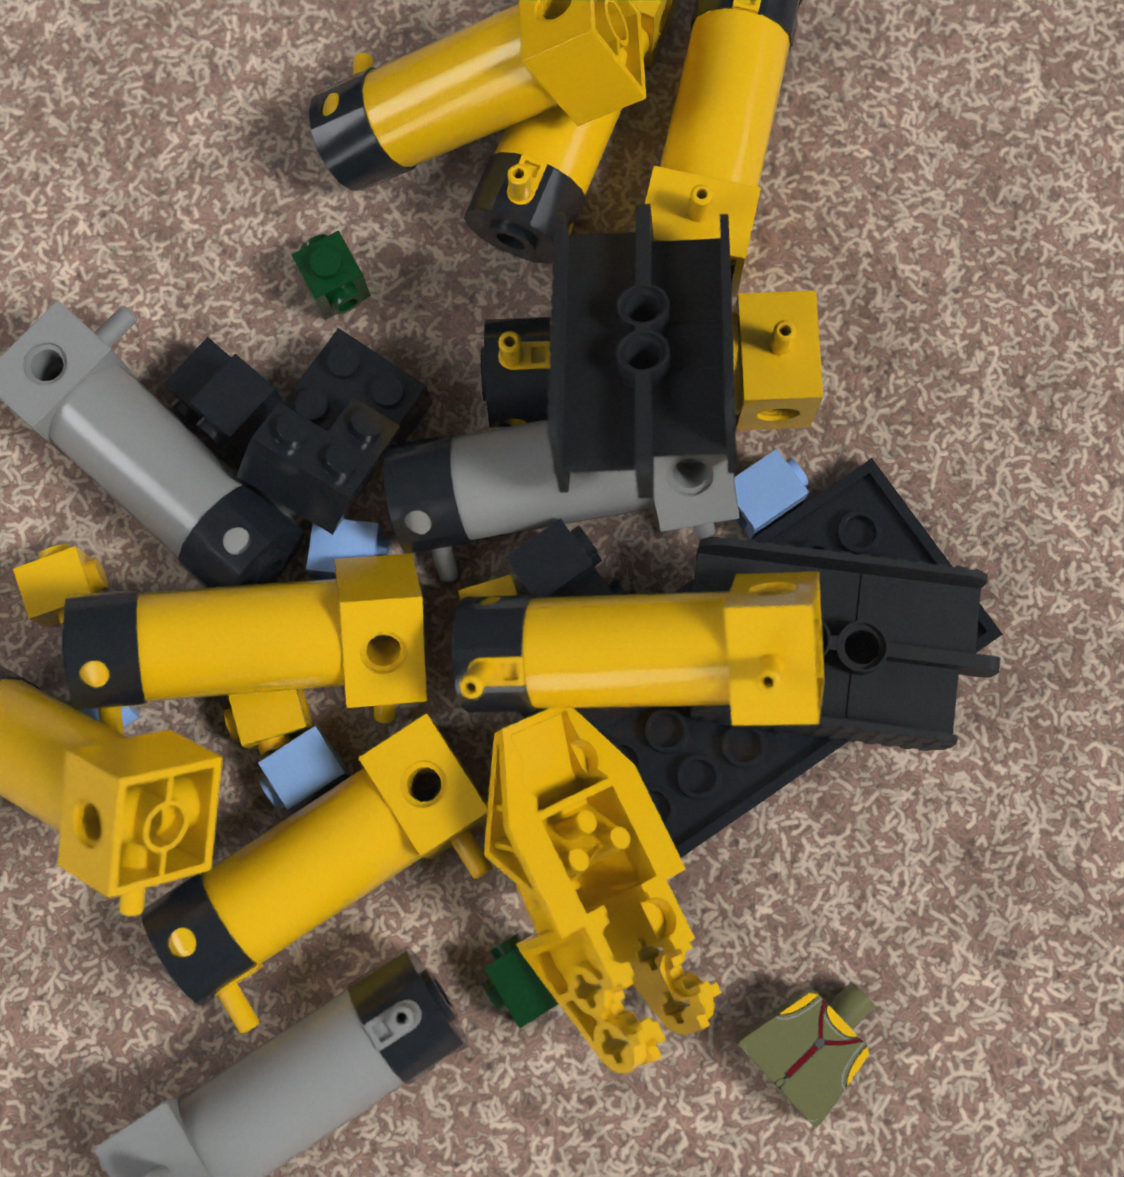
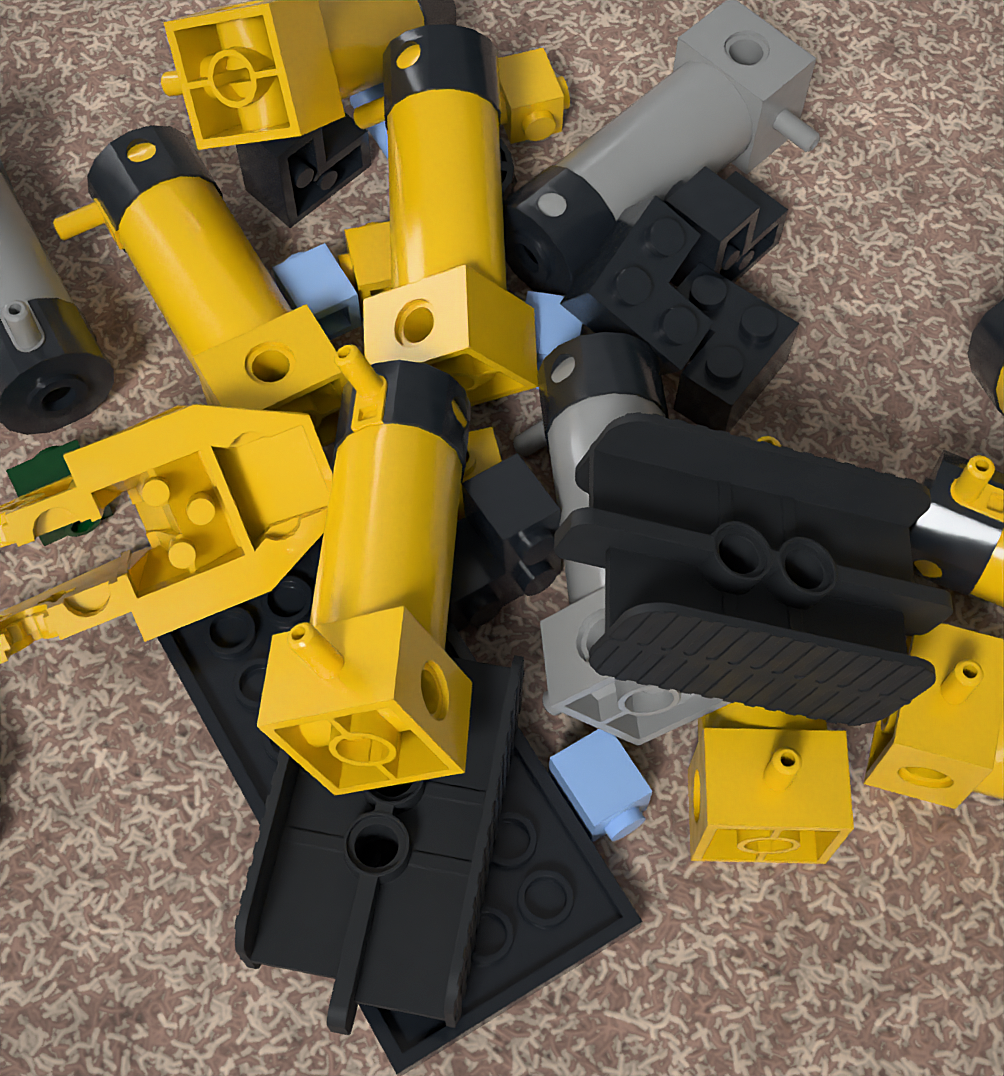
camera: 85 degrees right, 15 degrees down
(331, 274) = (866, 333): dark green brick -> none

